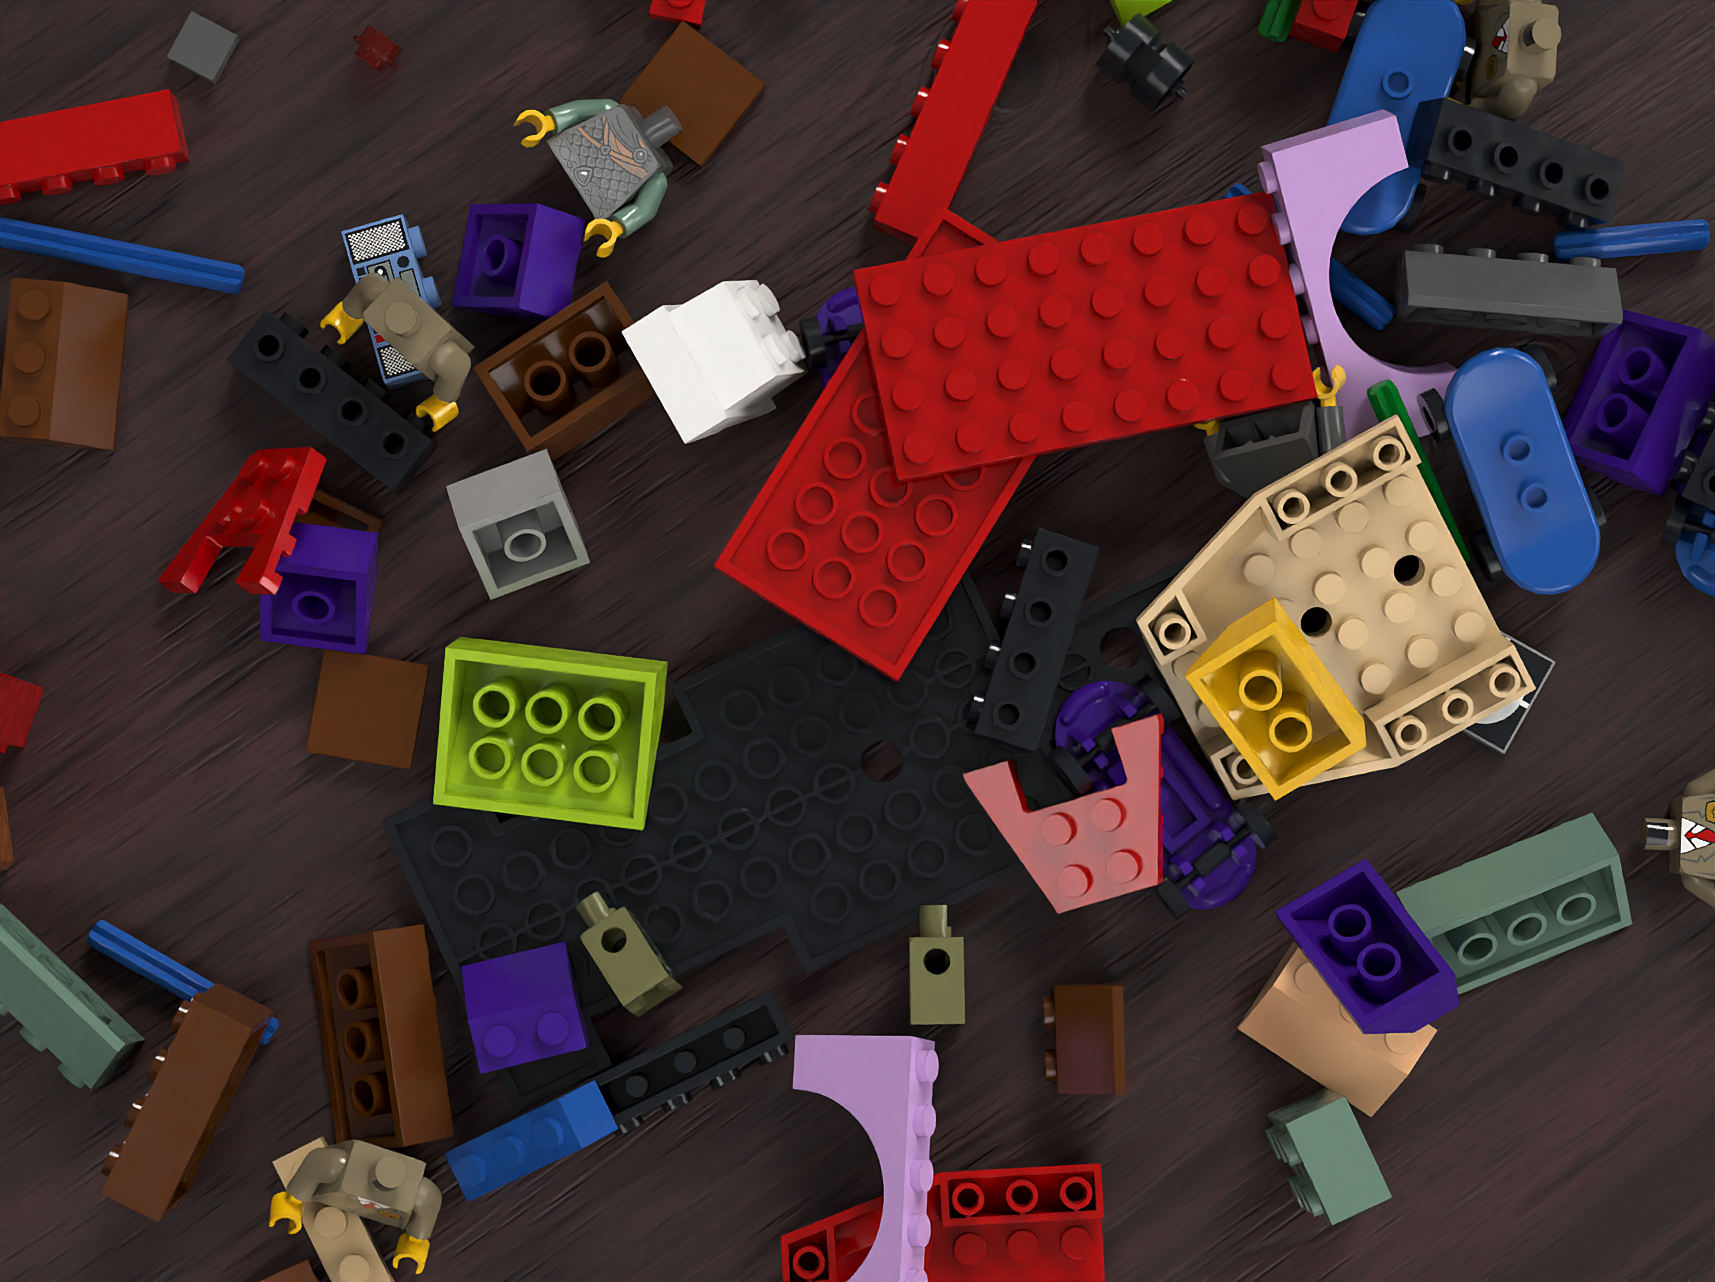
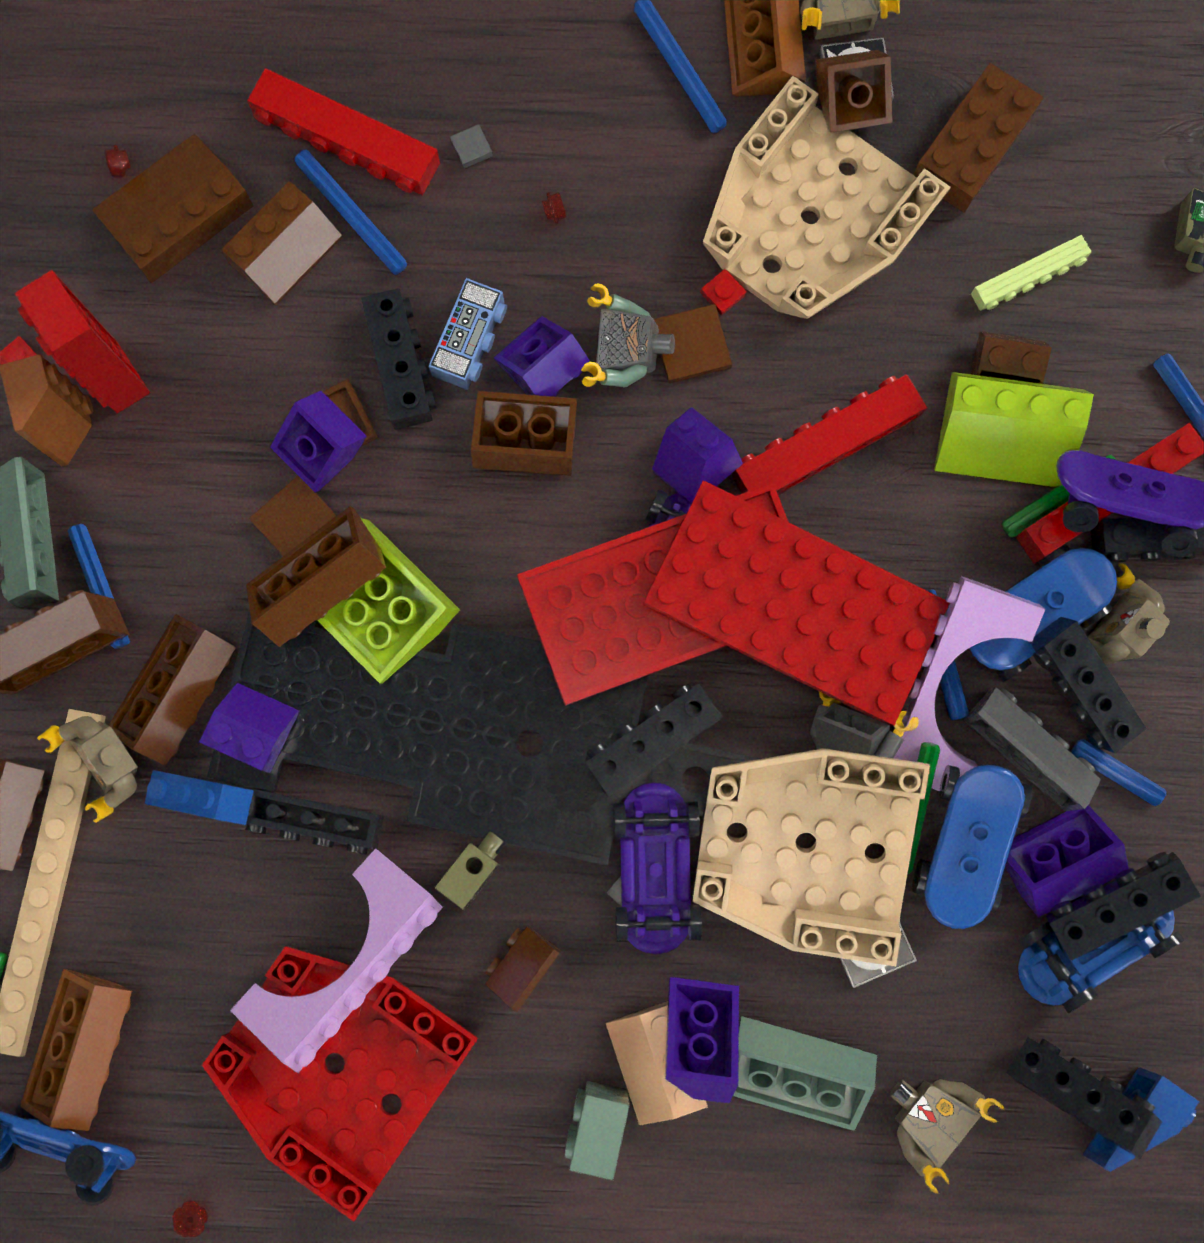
camera: 40 degrees right, 5 degrees down
(251, 513) = (308, 382): red wing -> none
(414, 332) = (460, 350): dark tan torso -> none
(457, 761) = (314, 577): none -> reddish brown slope
(517, 524) = (438, 483): light grey brick -> none
(638, 970) = (320, 740): olive torso -> none
(717, 357) = (602, 475): white piece -> none
(811, 241) = (693, 453): none -> dark purple slope
(1094, 842) = (603, 867): wing -> none
(1145, 62) = (932, 494): black wheel -> none
(1276, 700) = (754, 866): yellow slope -> none

